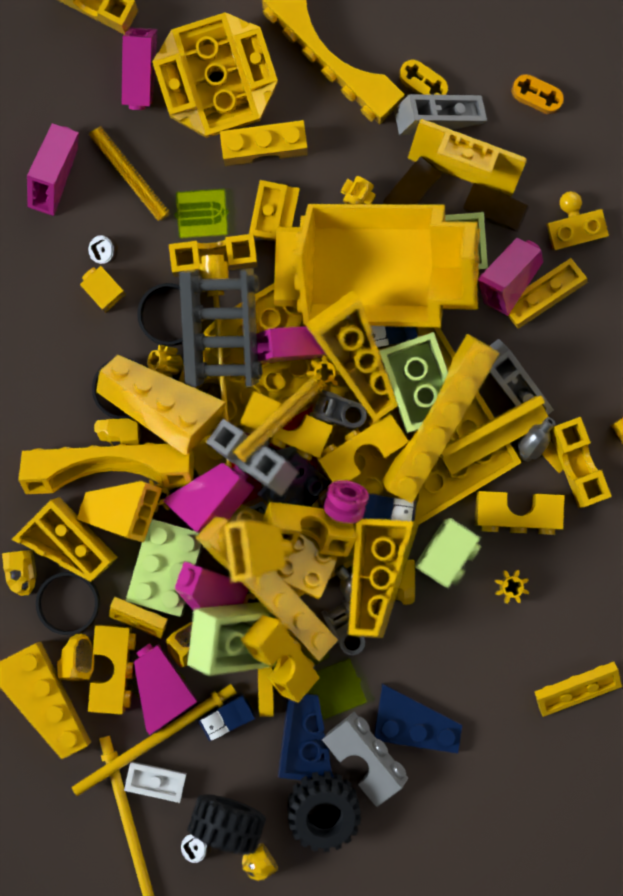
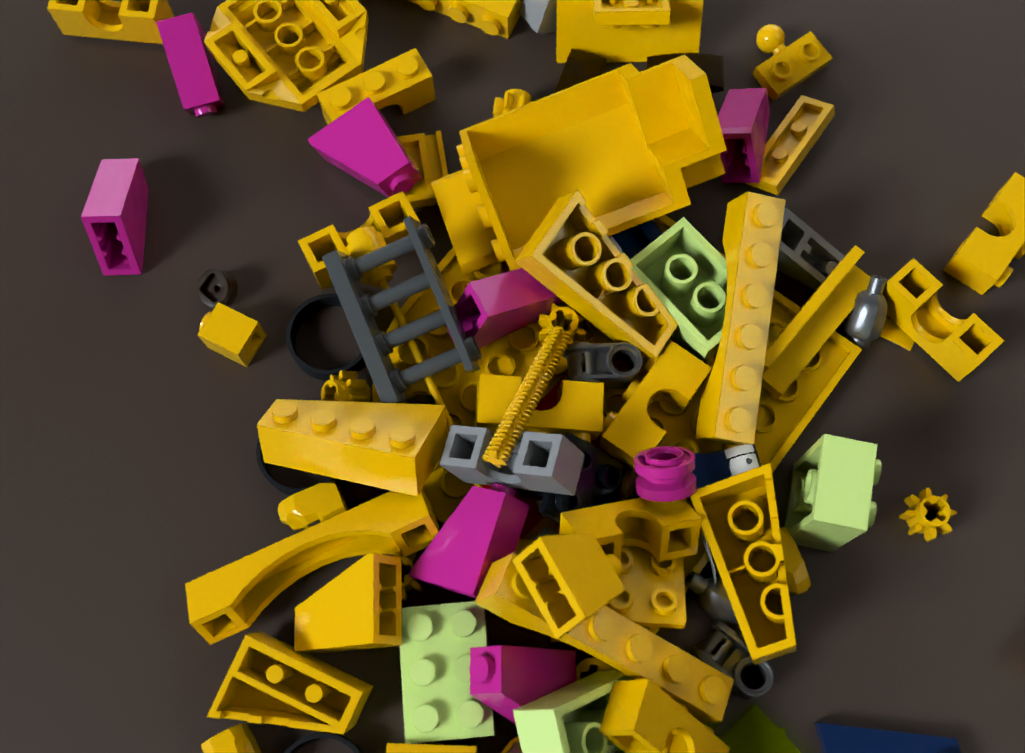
camera: 20 degrees left, 15 degrees down
(129, 174) = (222, 191): yellow axle -> none
(201, 213) = (330, 202): clear neon green piece -> none
(242, 188) = (367, 150): none -> dark pink slope
(493, 512) = (921, 402): yellow arch -> none

